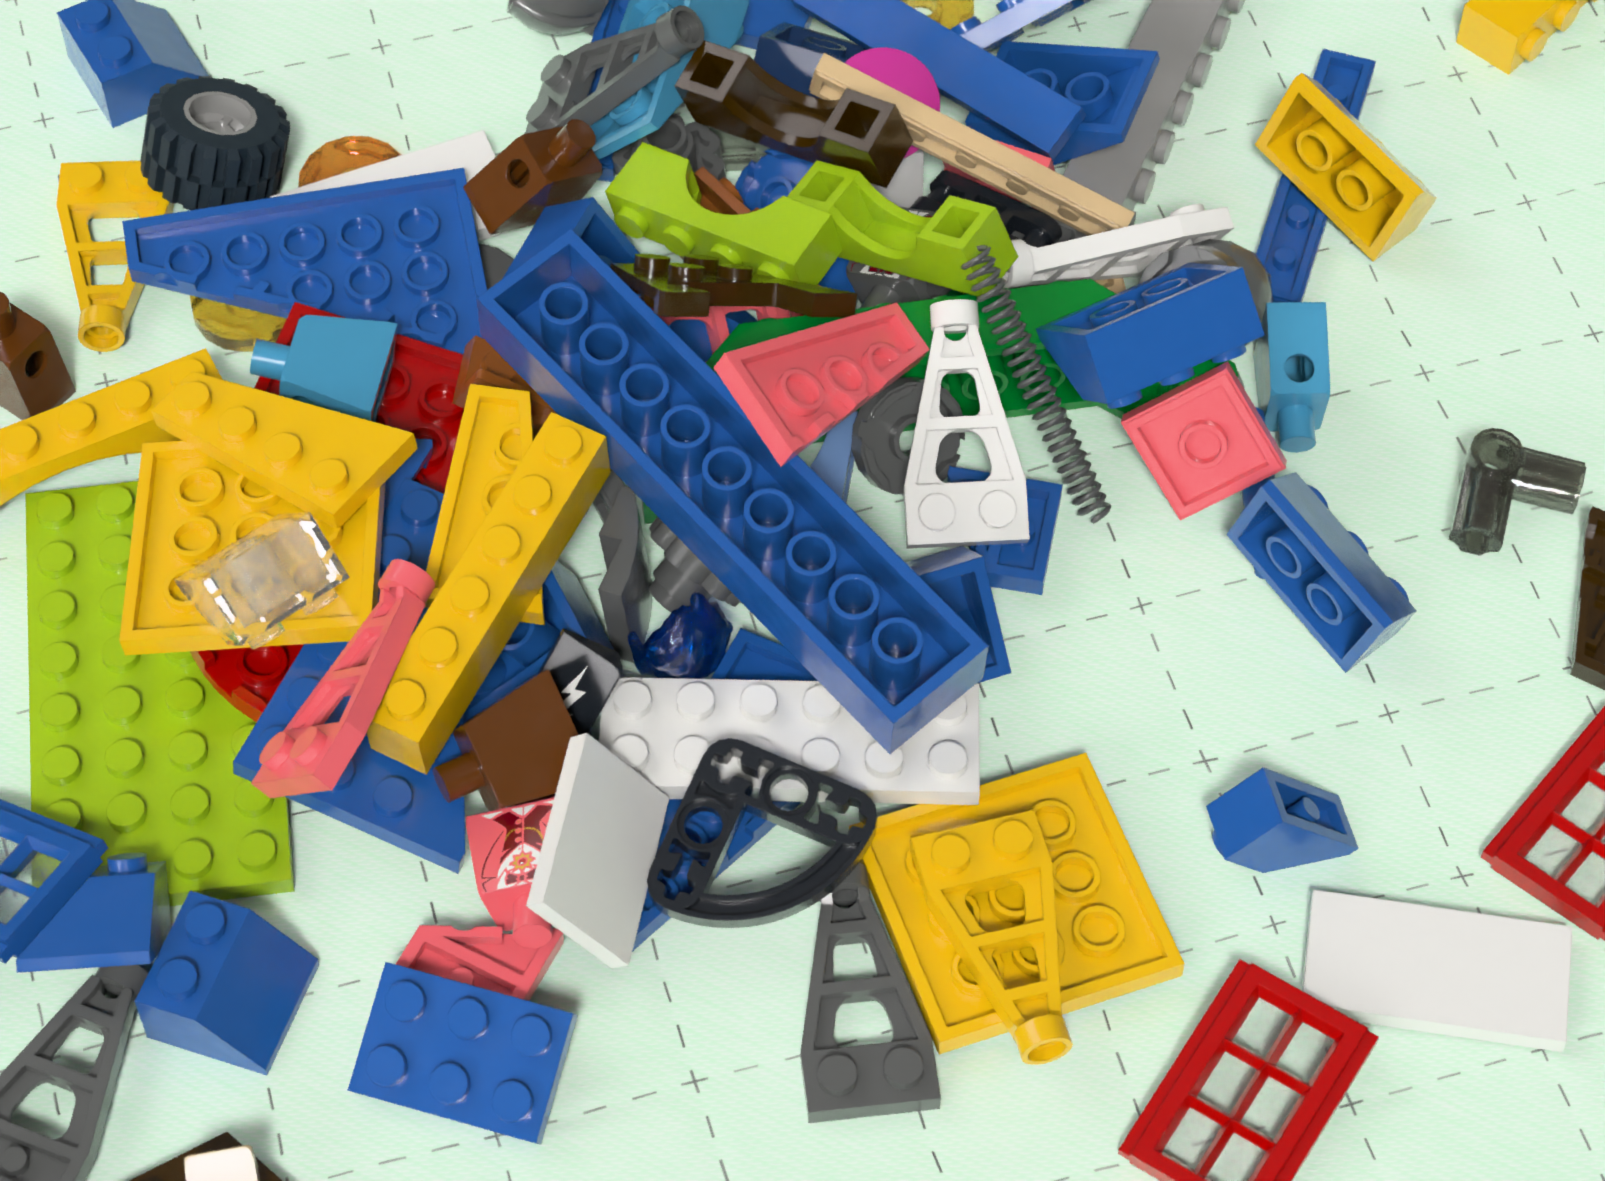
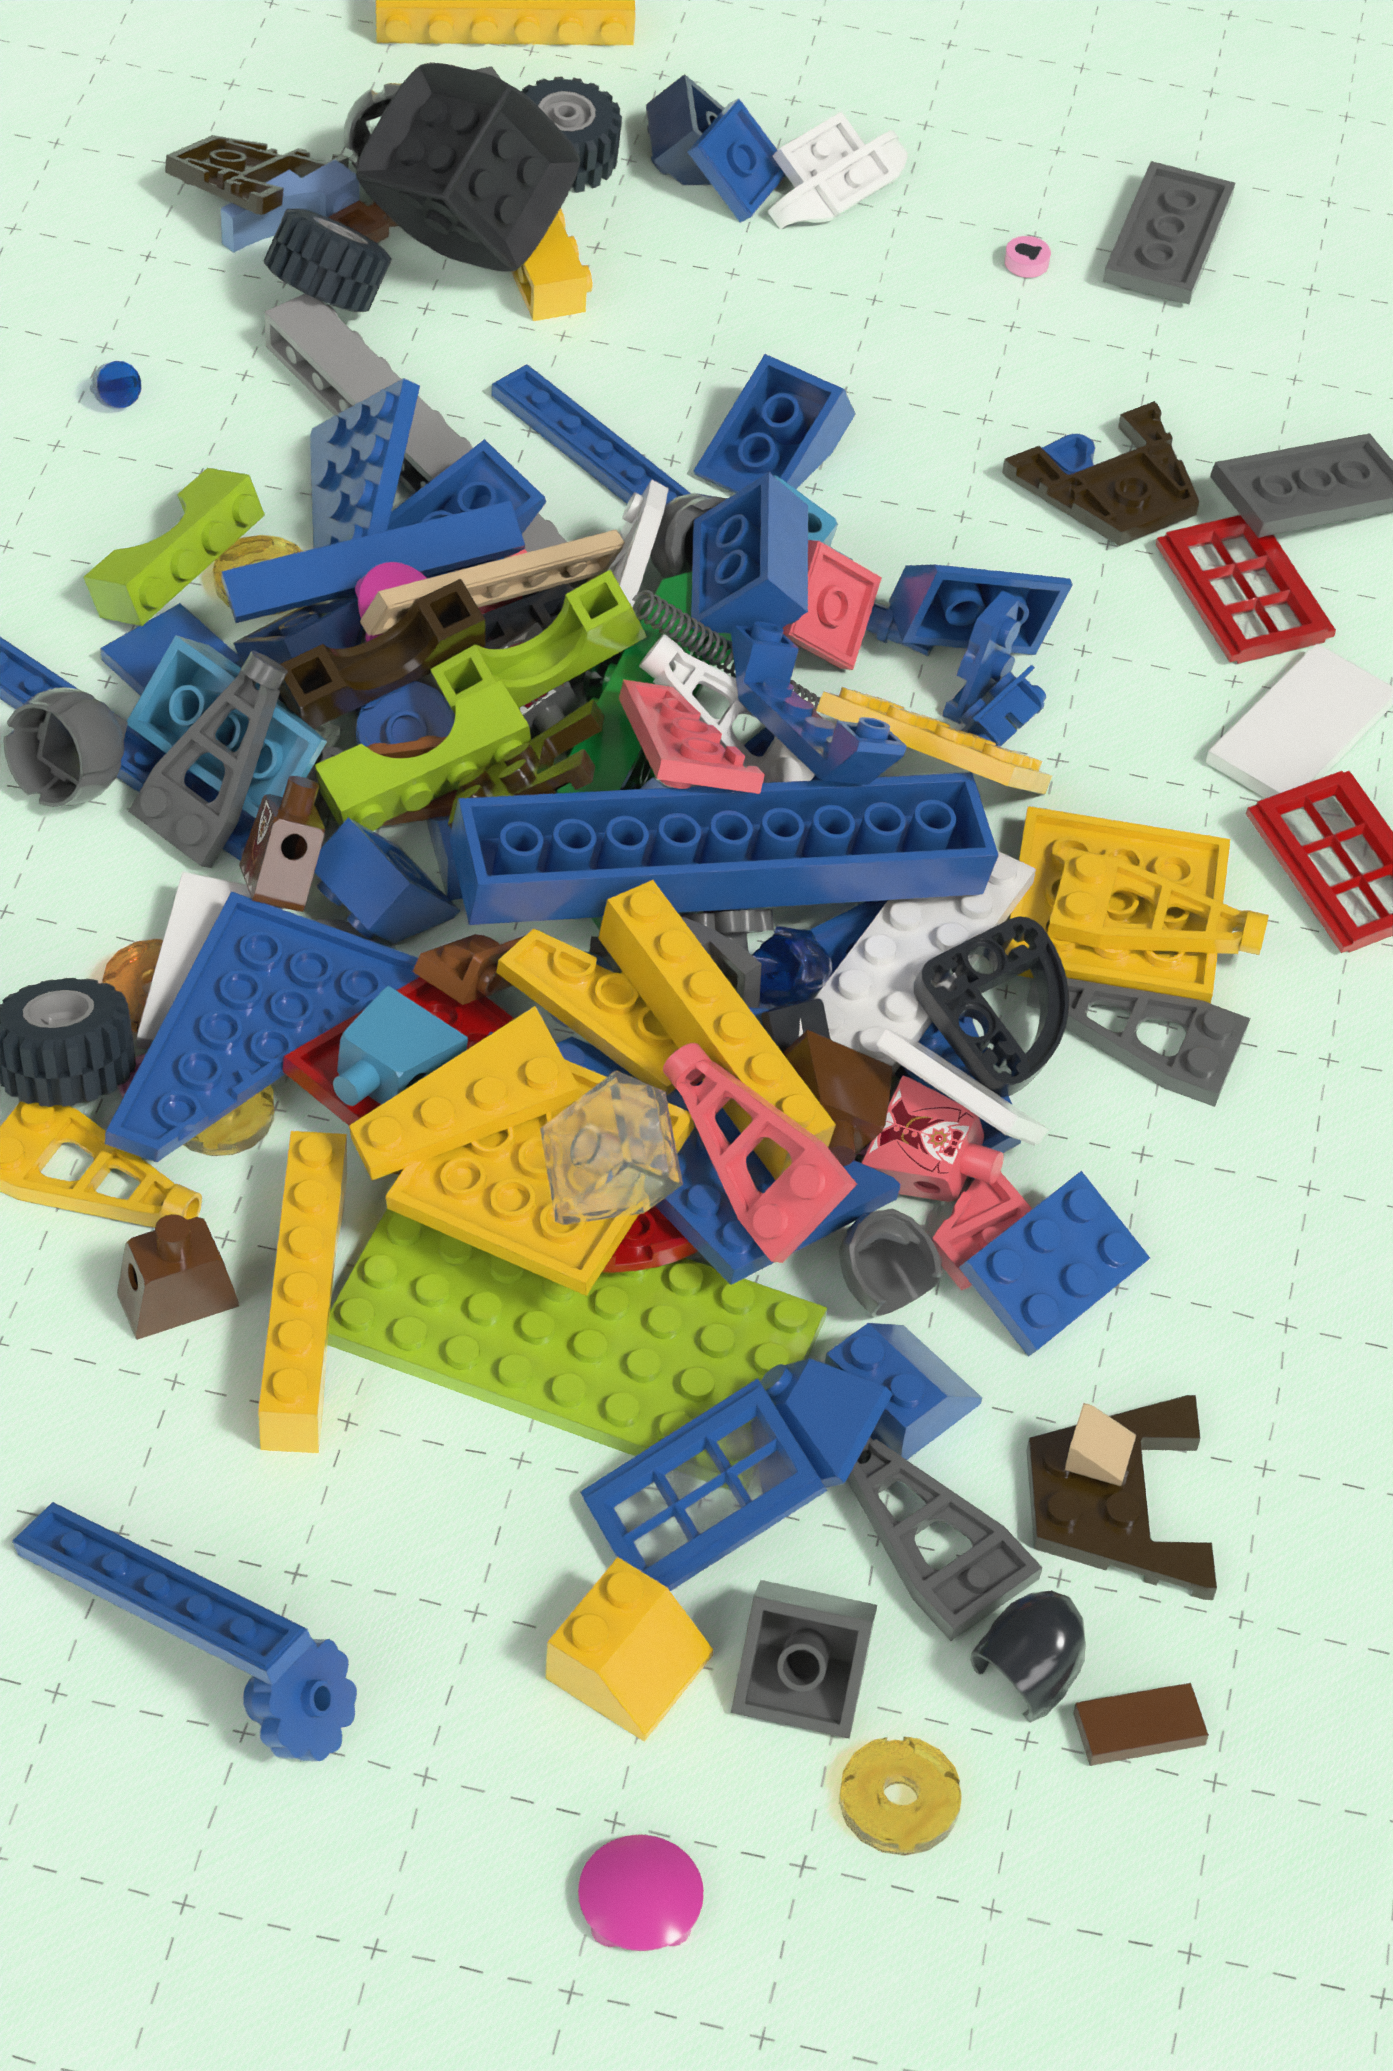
camera: 65 degrees left, 5 degrees down
(357, 894) = (888, 1261): none -> dark grey piece
(961, 460) = (833, 753): none -> blue slope
(1061, 616) = (940, 740): none -> yellow plate
(1239, 671) = (1012, 698): none -> blue hinge
(1262, 615) = (987, 654): none -> blue wing
(1279, 823) = (1148, 743): blue slope -> none
(1344, 168) = (637, 415): yellow slope -> none
(1450, 298) = (778, 425): none -> blue slope
(1520, 476) = (945, 495): clear smoke piece -> none

